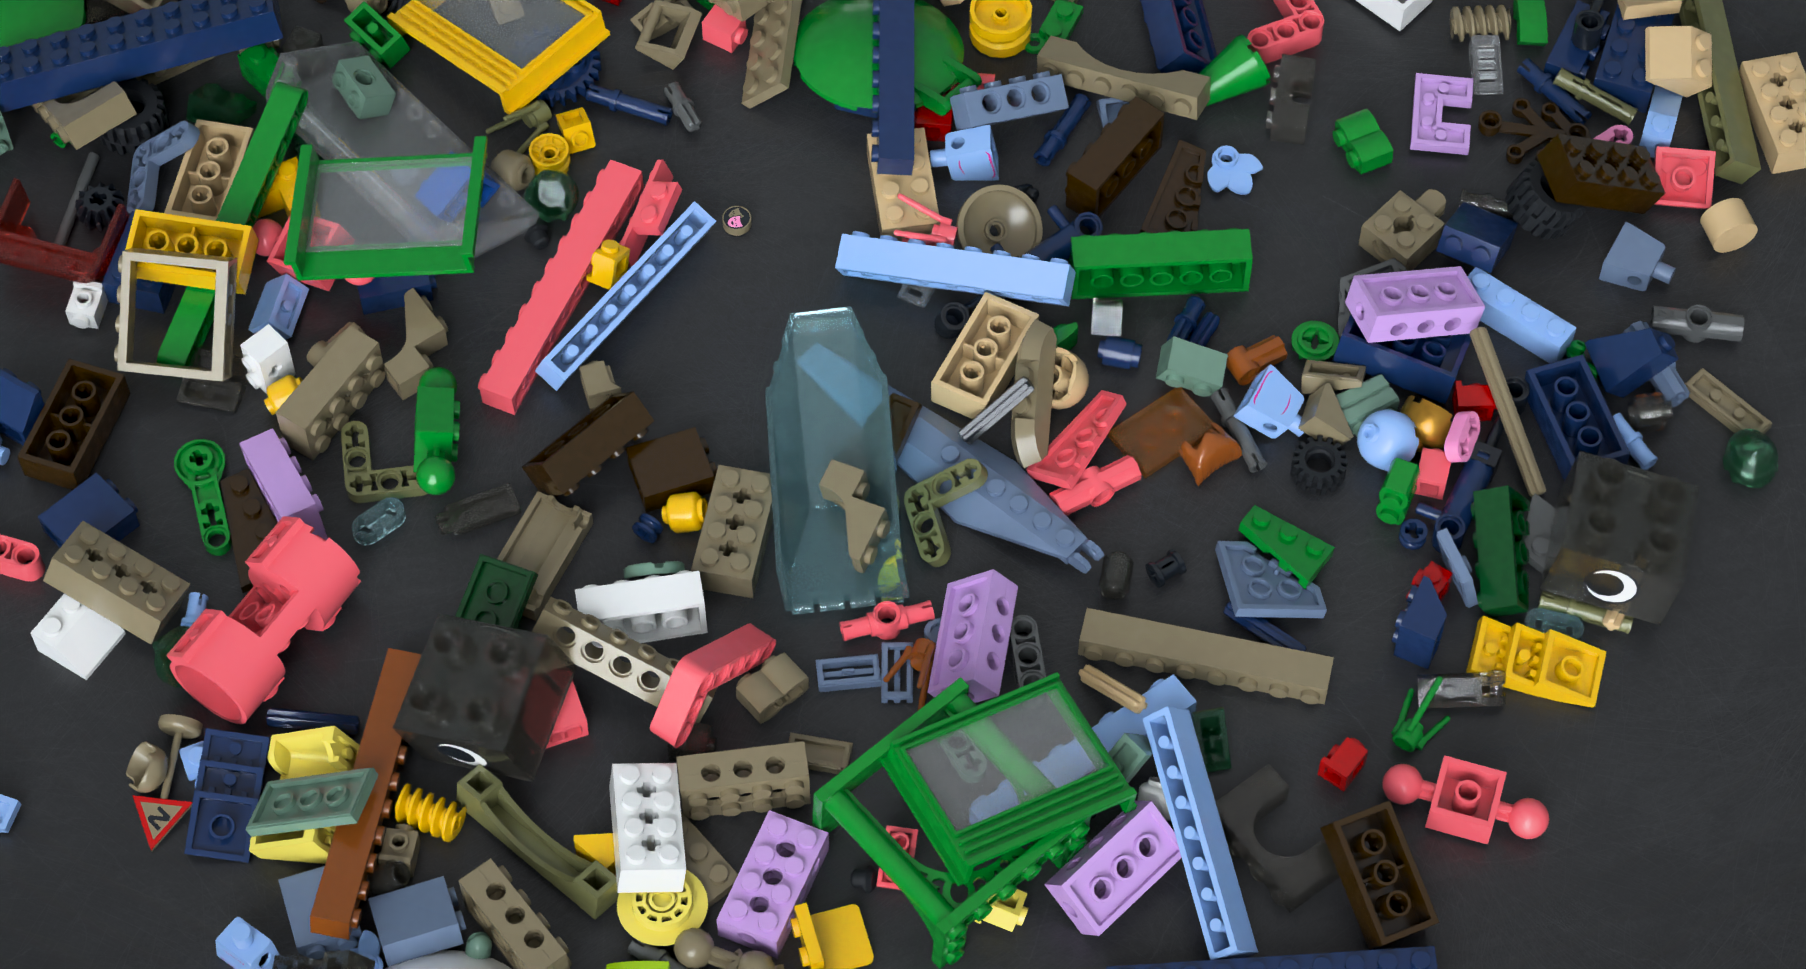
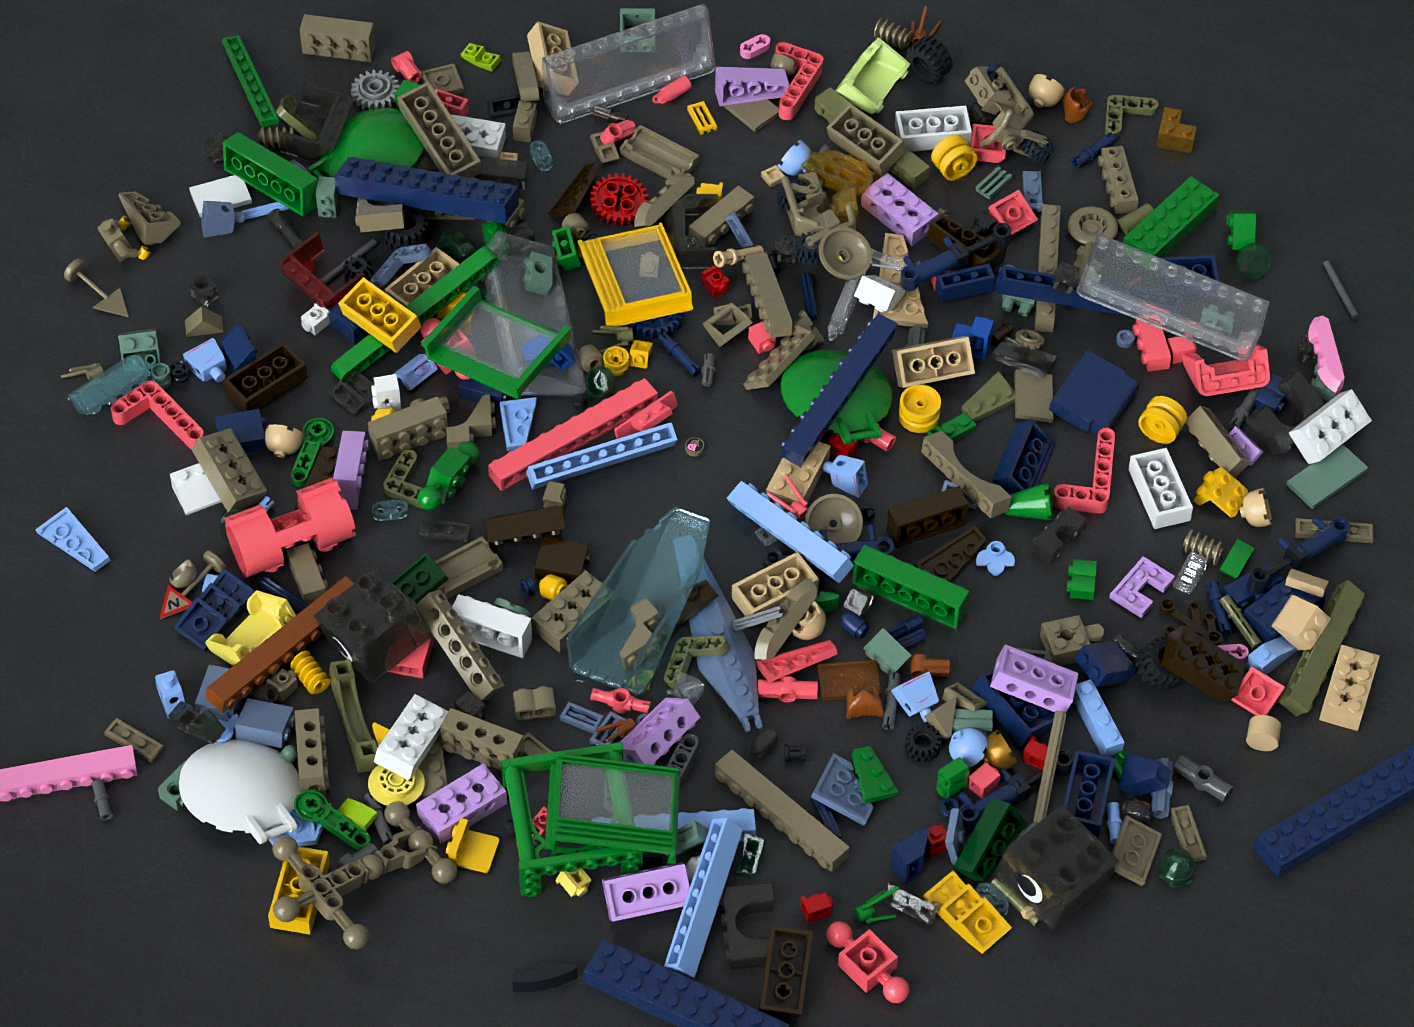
camera: 30 degrees right, 5 degrees down
(160, 500) = (282, 440): none -> tan cylinder
(223, 313) = (373, 356): window -> none
(312, 802) = (249, 632): sand green tile -> none
(326, 673) = (306, 572): none -> dark tan brick
(471, 307) = (517, 421): none -> light blue wing
(609, 264) = (604, 432): yellow brick -> none
(701, 673) = (500, 671): coral beam -> none
(967, 556) = (687, 687): none -> clear brick
(1048, 92) = (859, 451): sand blue brick -> none
(1057, 137) = (906, 490): dark blue pin -> none
(1113, 689) = (715, 799): tan axle -> none
(1304, 335) = (969, 668): green gear -> none
(1462, 436) = (1010, 766): bright pink beam -> none
(1635, 260) = (1193, 725): sand blue torso -> none
(1682, 454) = (1135, 849): none -> dark tan tile

